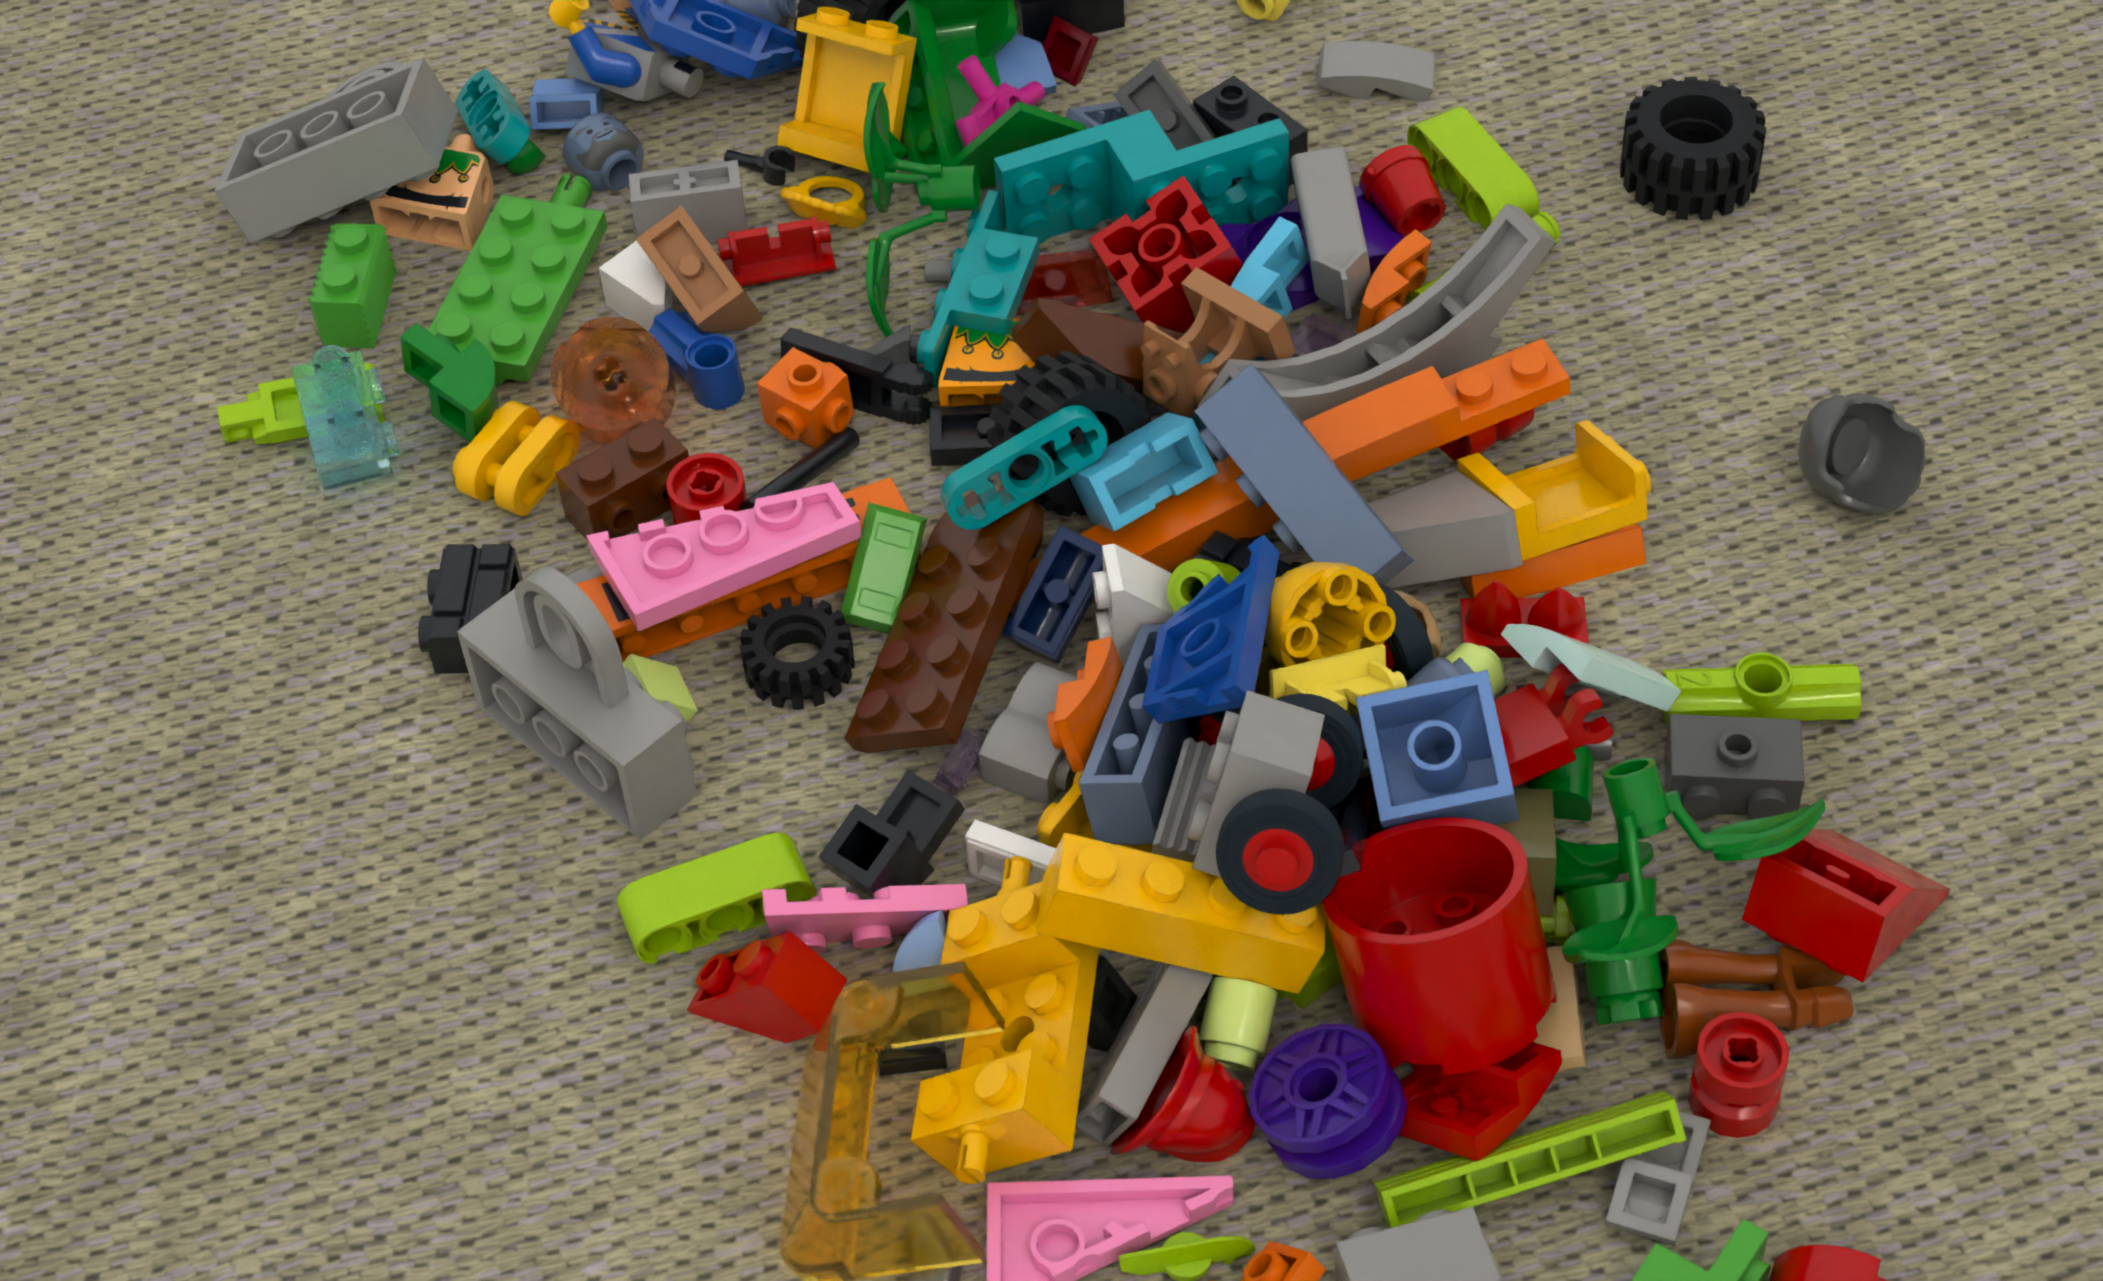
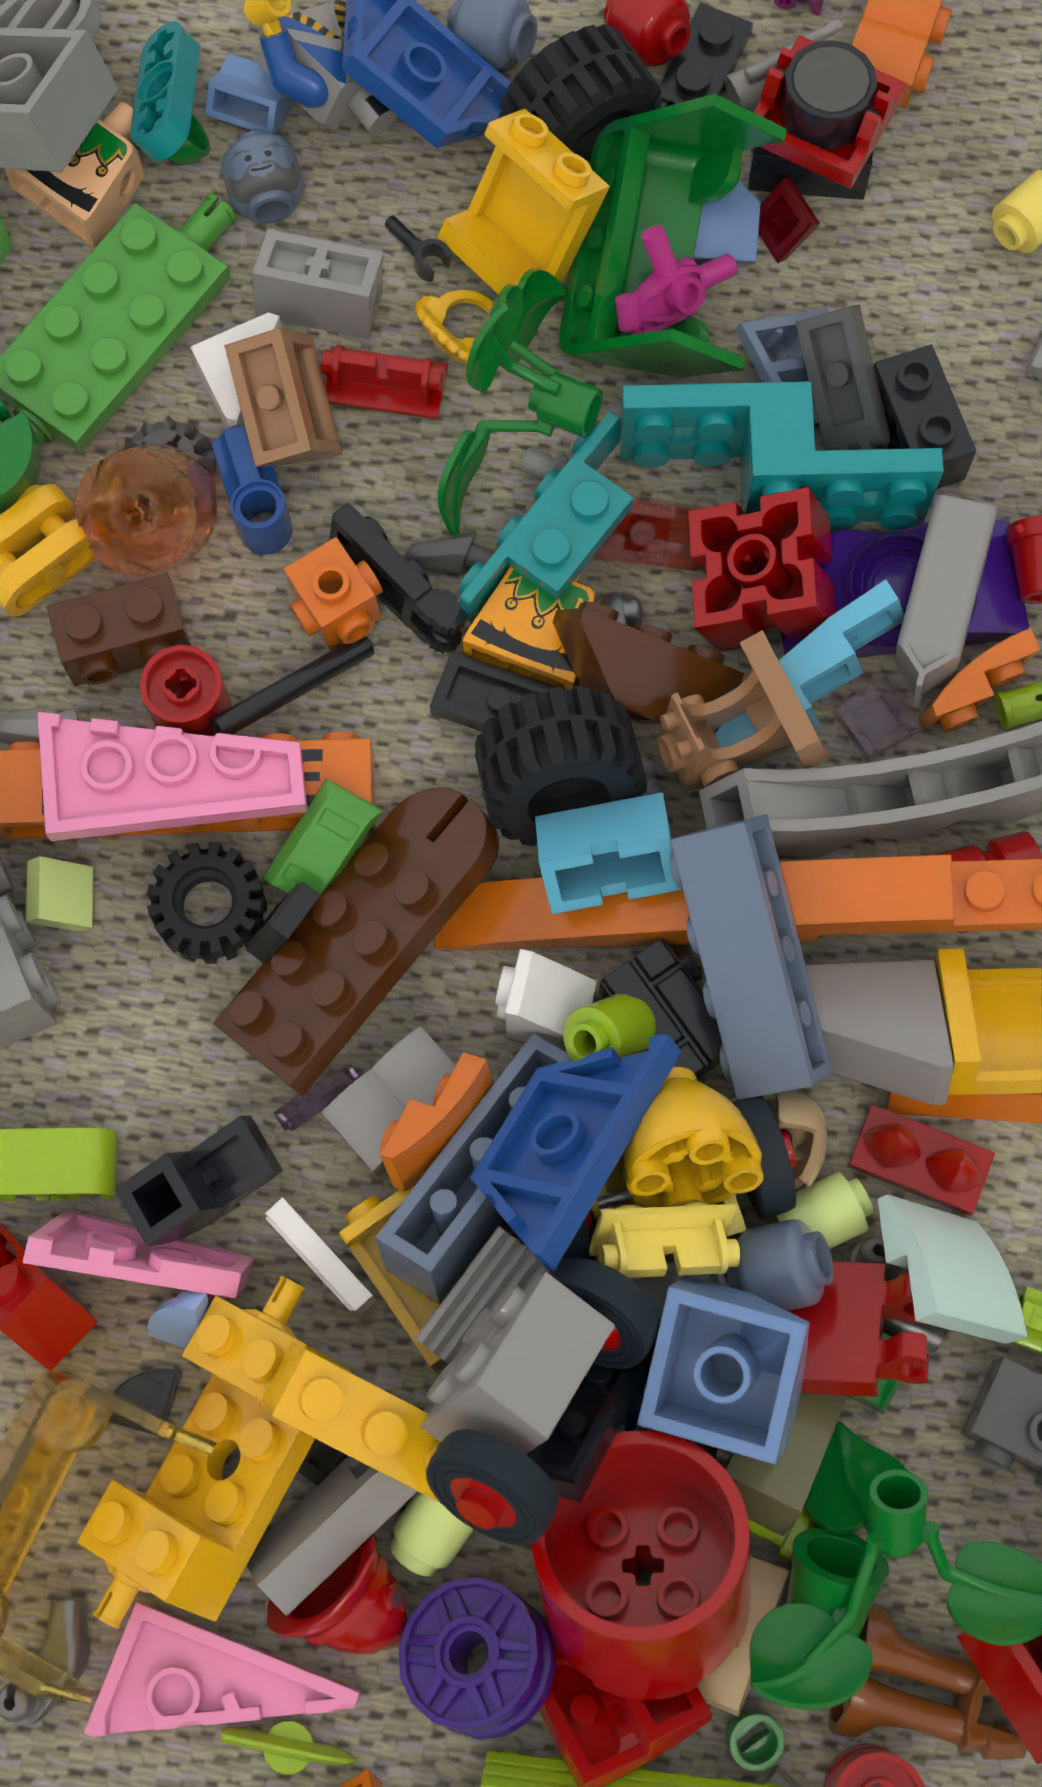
camera: 20 degrees right, 25 degrees up
(873, 635) = (282, 921): none -> black tile
(1018, 492) = (526, 809): teal beam -> none
(1056, 596) = (476, 952): dark blue brick -> none
(1617, 1067) = (761, 1749): none -> green hinge

